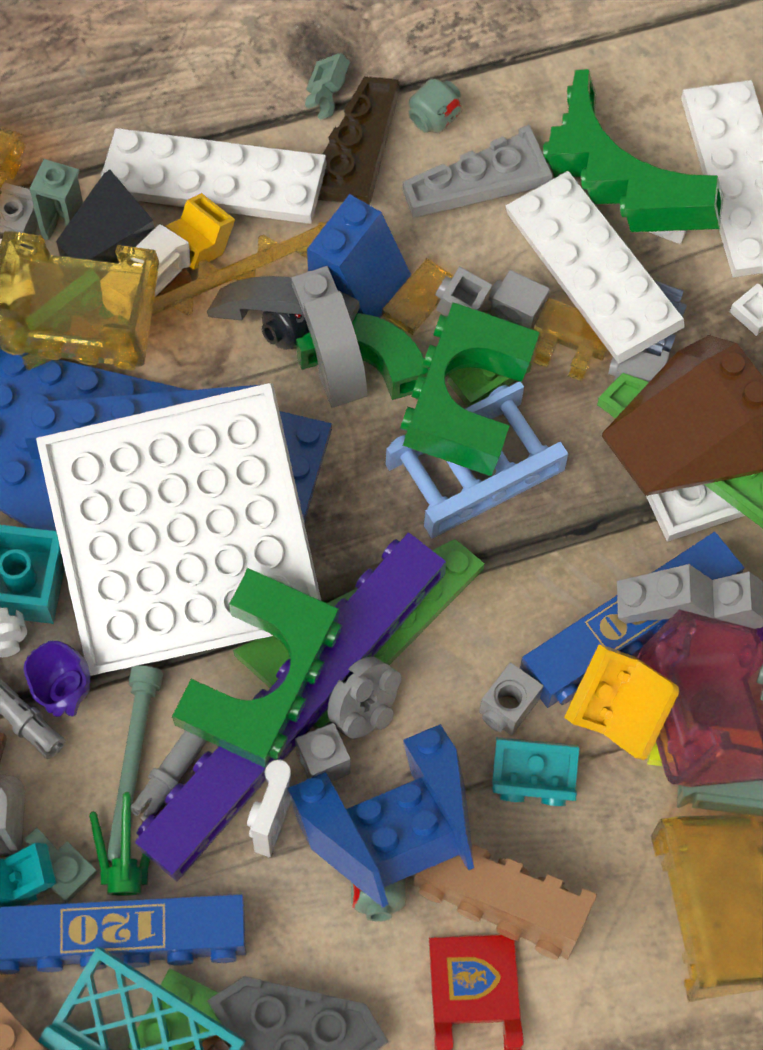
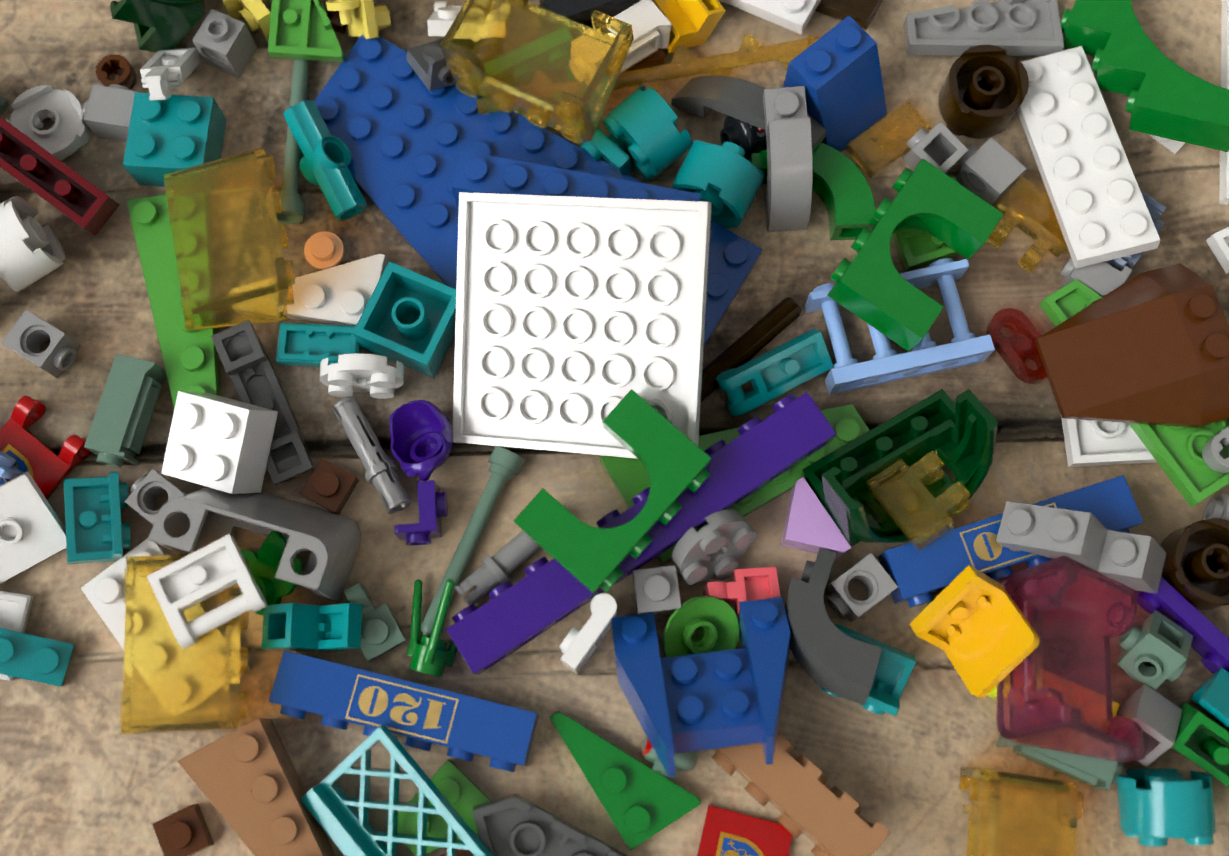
camera: 20 degrees right, 10 degrees up
(87, 740) = (432, 507): none -> dark purple bracket
(159, 371) = (604, 148): none -> teal plate
(194, 345) = (648, 131): none -> teal brick
(275, 362) = (721, 178): none -> teal brick
(344, 512) = (750, 343): none -> dark brown axle
(352, 947) = (629, 790): none -> green wing
(375, 529) = (775, 372): none -> teal plate
(375, 761) = (715, 623): none -> bright green dish
(402, 725) = (746, 586): none -> coral plate
(449, 657) = (809, 524): none -> lavender slope
(487, 757) = (820, 648): none -> dark grey arch
(491, 233) = (982, 92): none -> dark brown brick
(533, 539) = (958, 434): none -> dark green piece
(533, 609) = (912, 506): none -> clear yellow plate
(591, 448) = (1019, 346): none -> clear red plate

